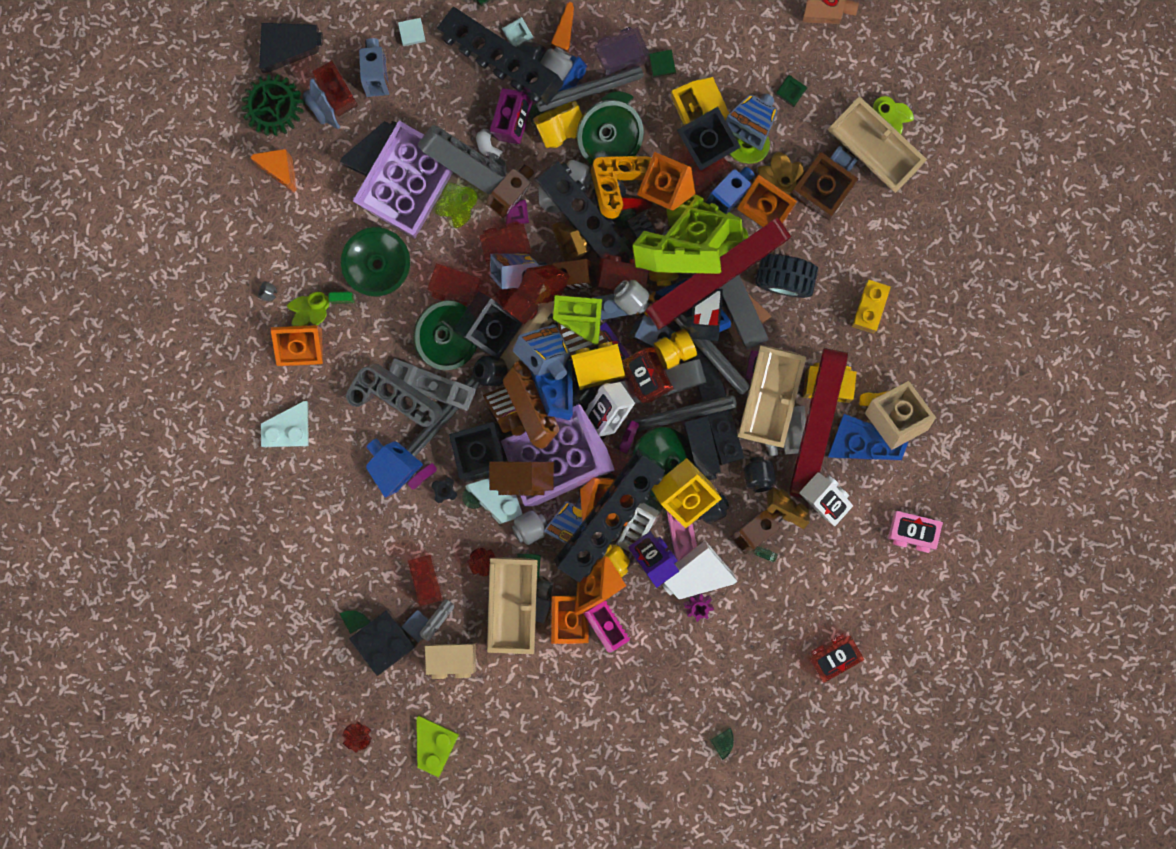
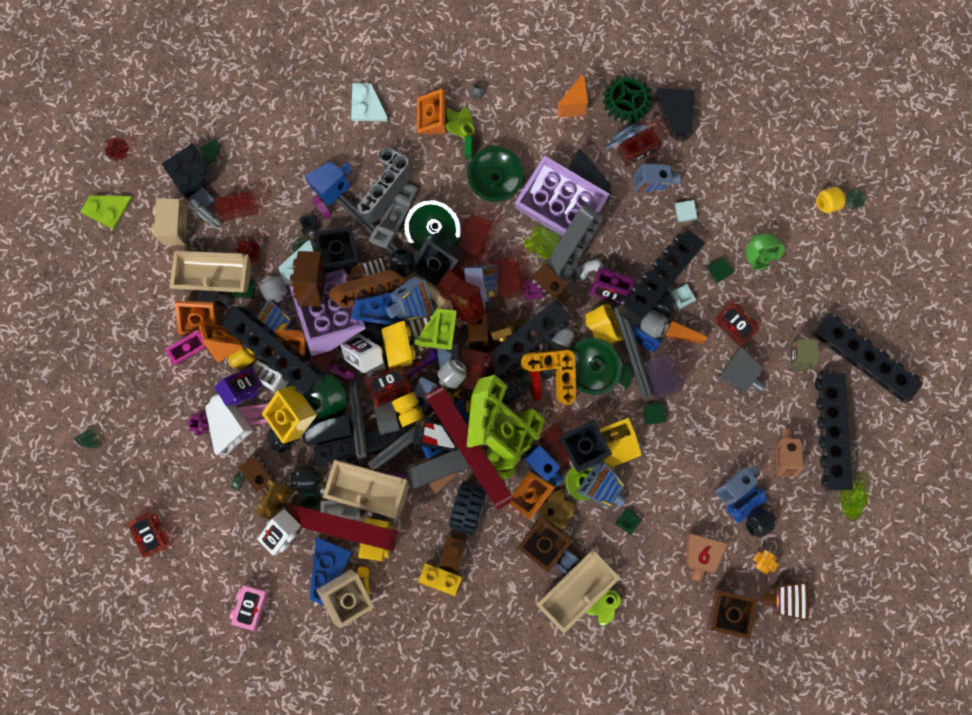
camera: 85 degrees right, 5 degrees down
(667, 182) = (550, 410): orange slope -> none
(783, 466) = (310, 499): none -> tile
(838, 292) = (453, 552): none -> reddish brown torso

